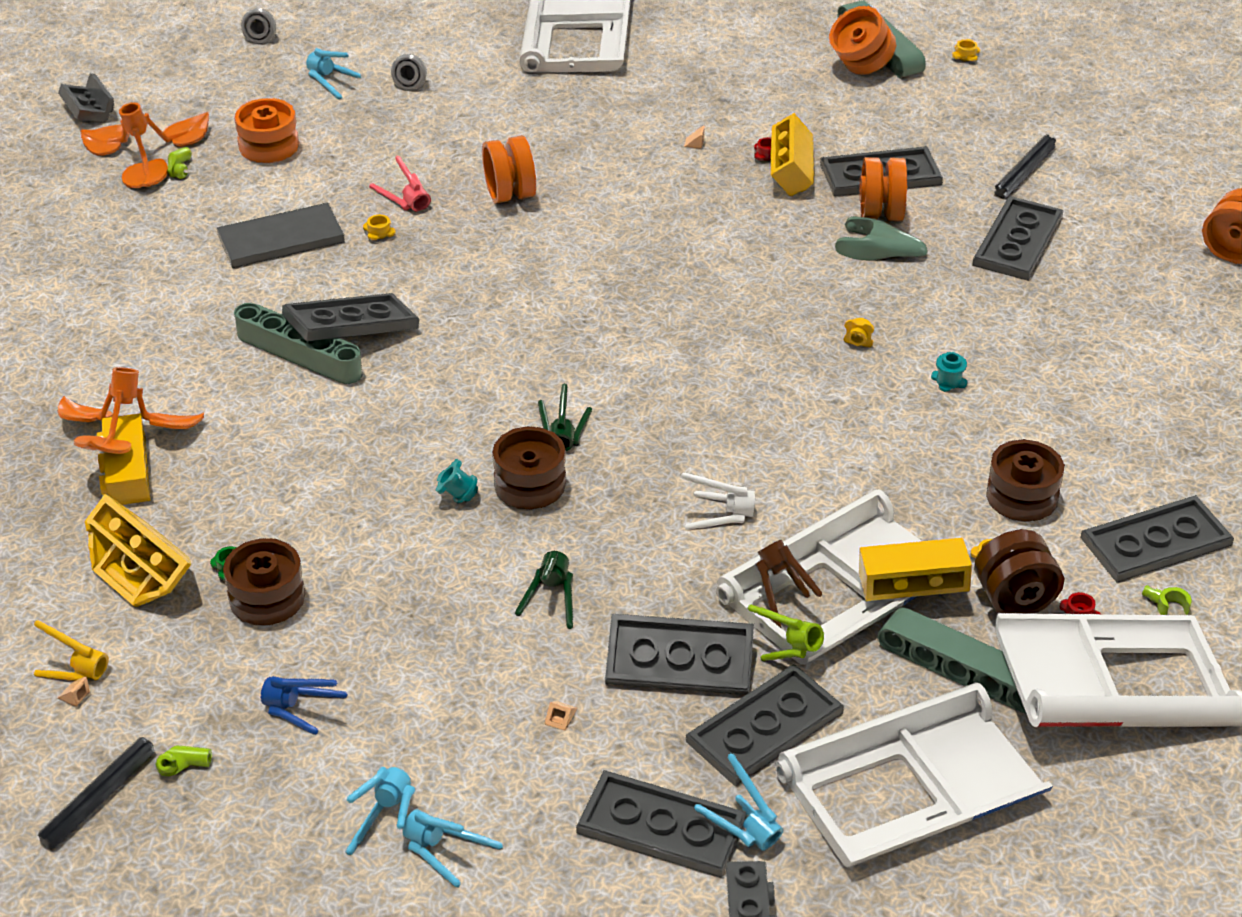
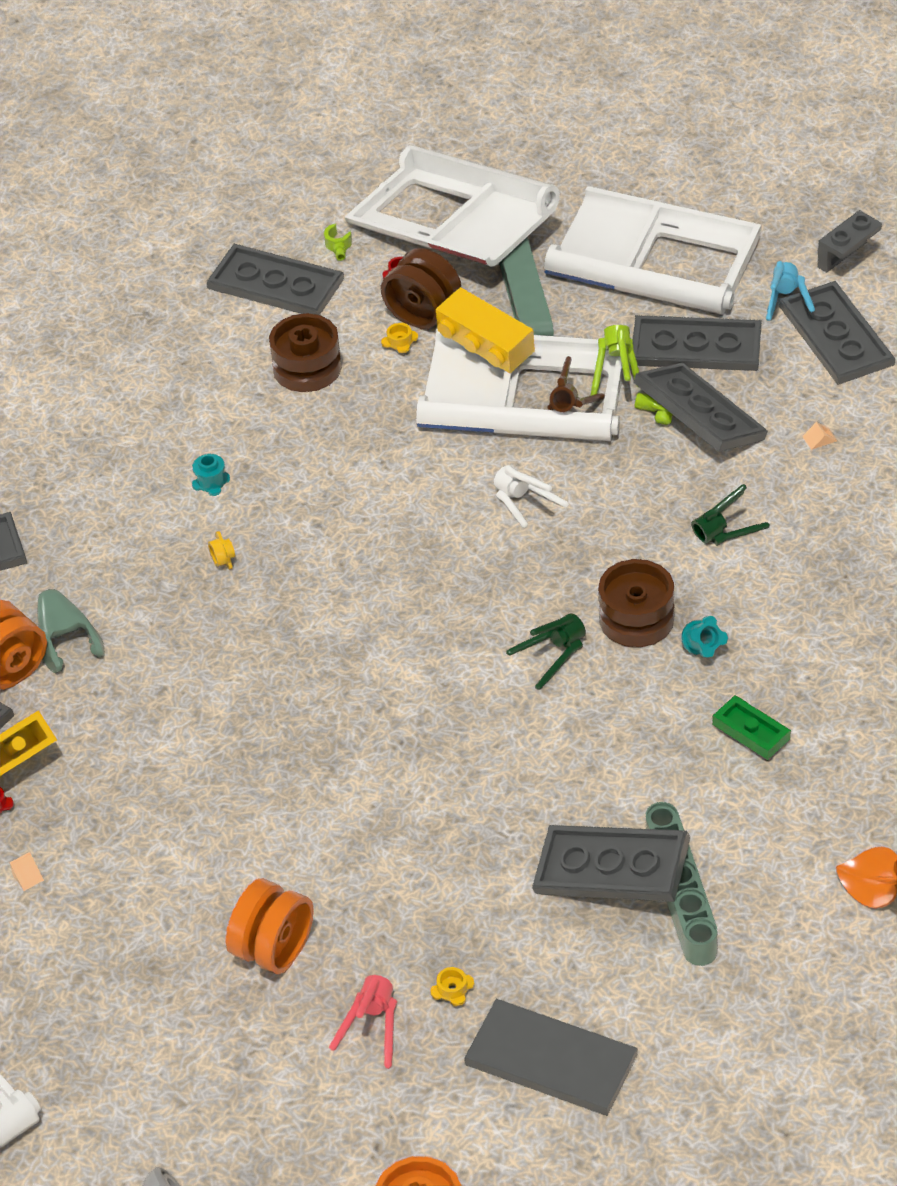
camera: 130 degrees left, 5 degrees up
(356, 457) = (751, 727): none -> green plate

